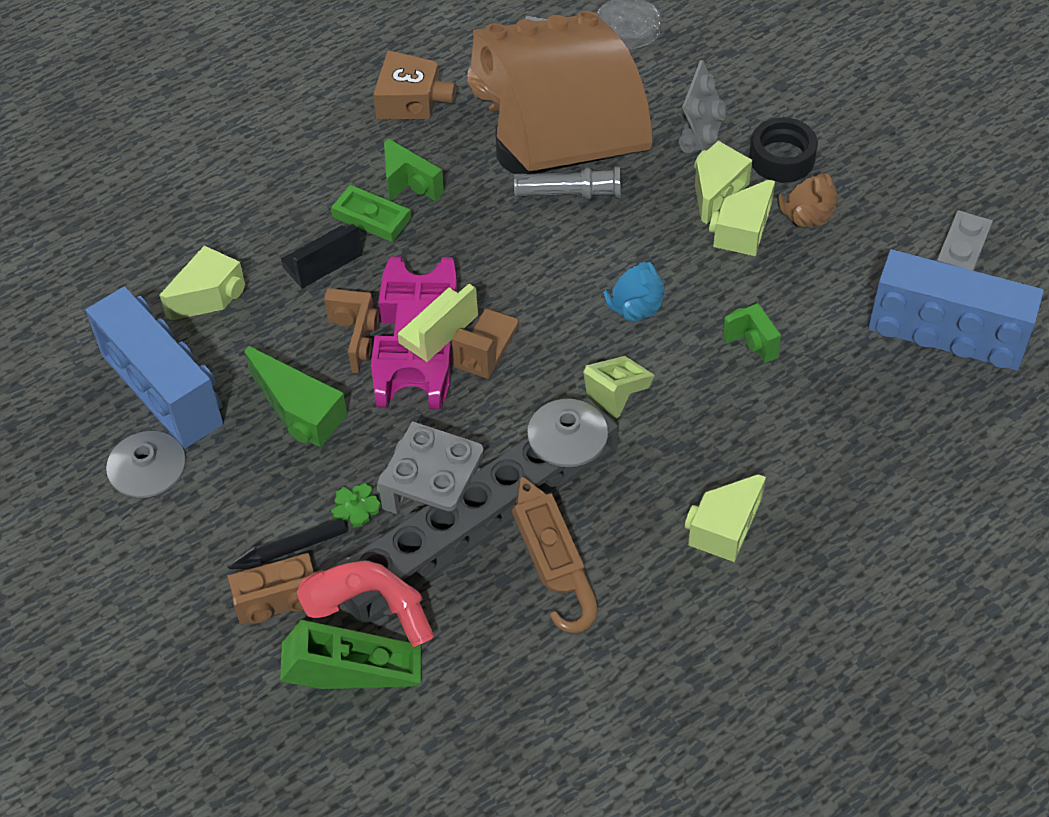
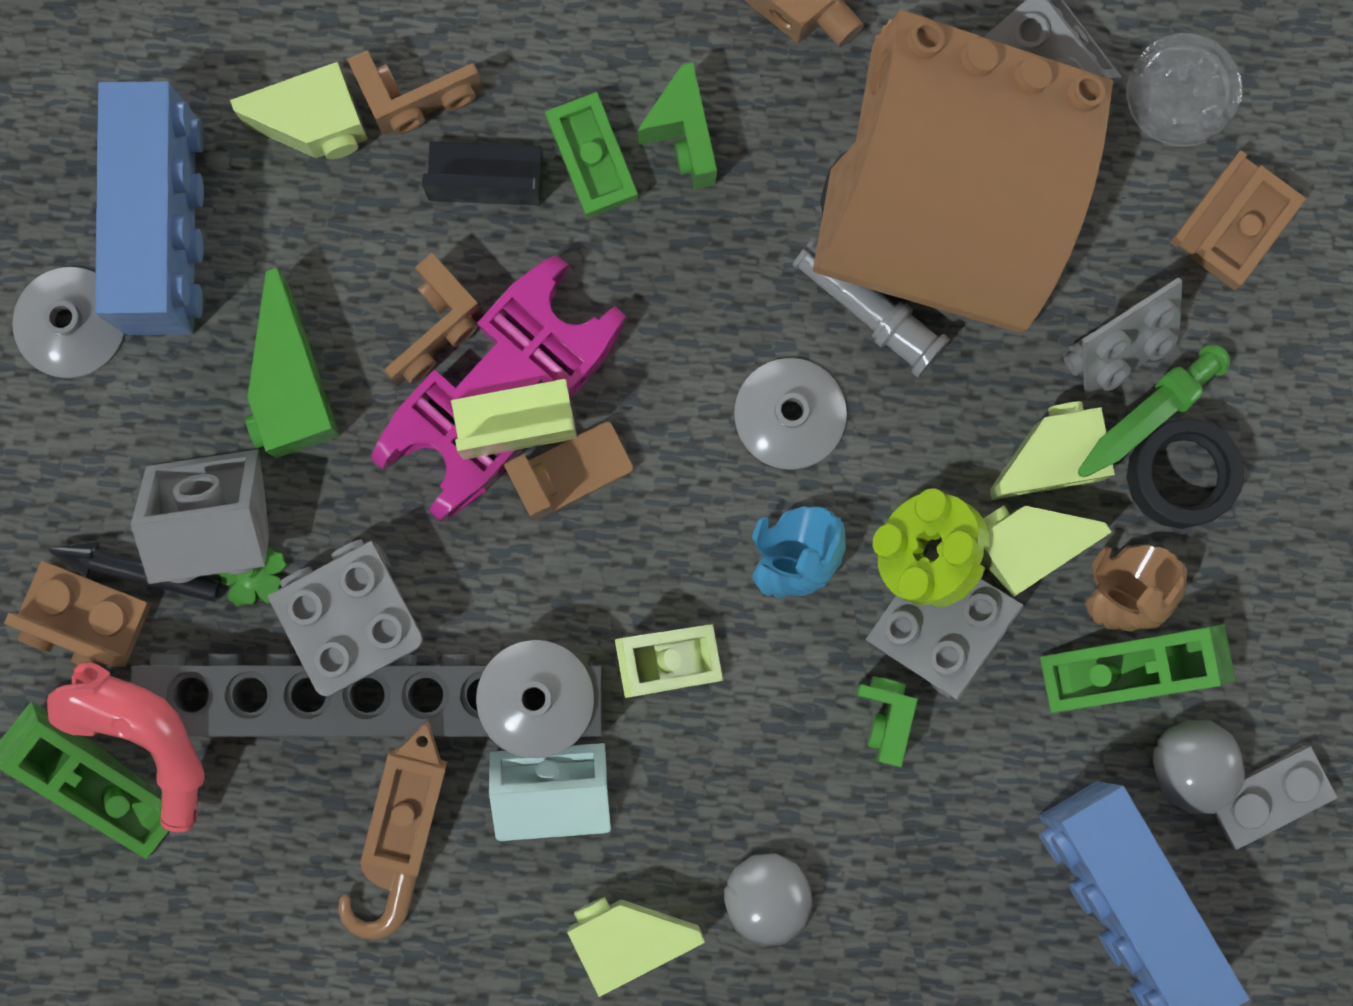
camera: 30 degrees right, 30 degrees up
(258, 249) = (409, 109): none -> medium nougat bracket
(309, 487) = (202, 517): none -> light grey slope
(573, 254) = (782, 441): none -> light grey dish
(618, 485) = (549, 794): none -> light aqua panel
(684, 237) = (903, 542): none -> lime plate
(703, 43) = (1238, 220): none -> medium nougat plate
(738, 278) = (949, 641): none -> light grey hinge
(744, 123) = (1174, 392): none -> bright green sword
(778, 452) = (768, 899): none -> light grey hair
(848, 229) = (1138, 669): none -> bright green slope
(921, 241) = (1198, 766): none -> light grey hair

